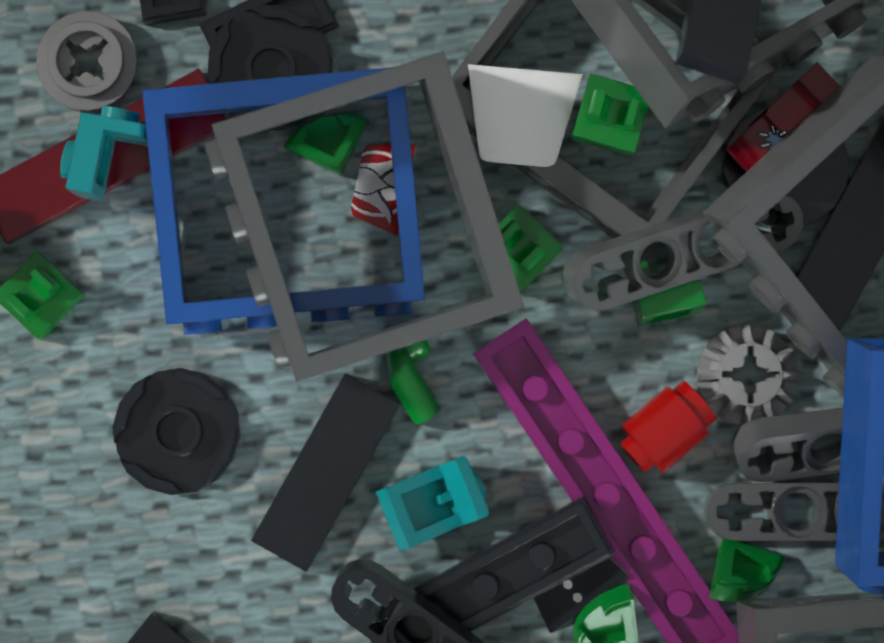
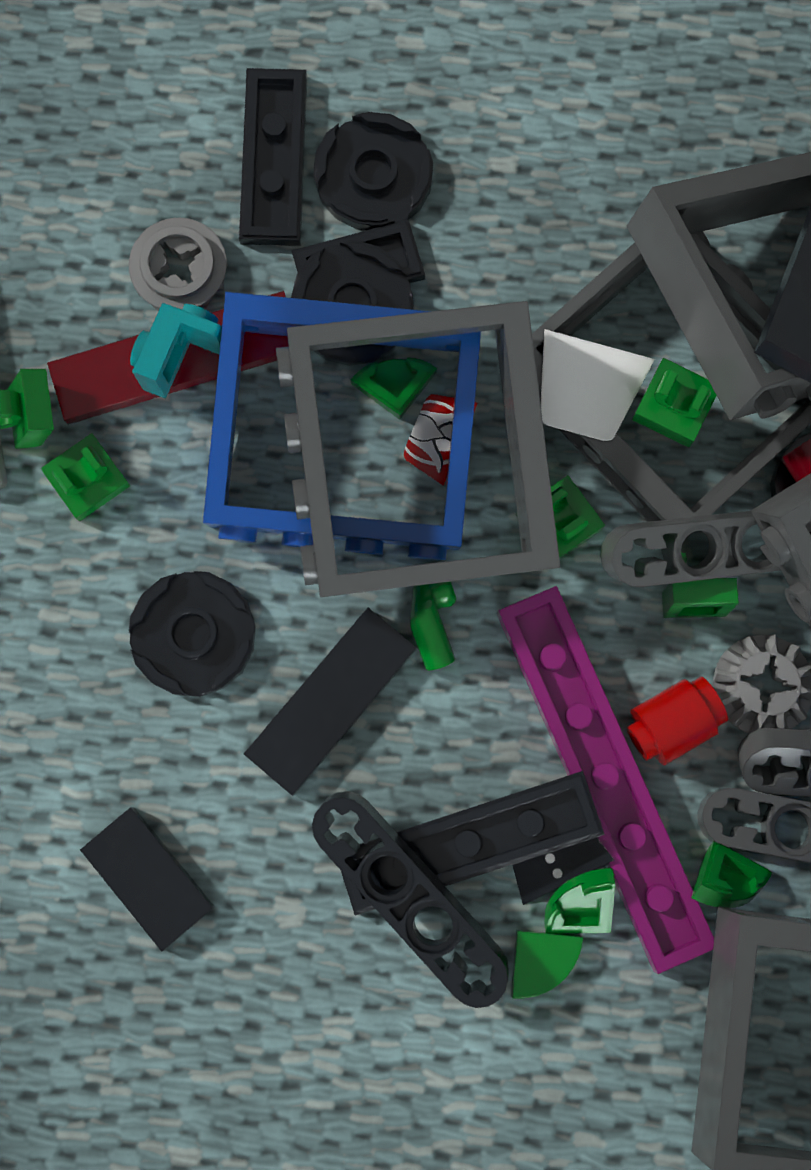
camera: 10 degrees right, 5 degrees down
(433, 502) = (431, 749): teal bracket -> none

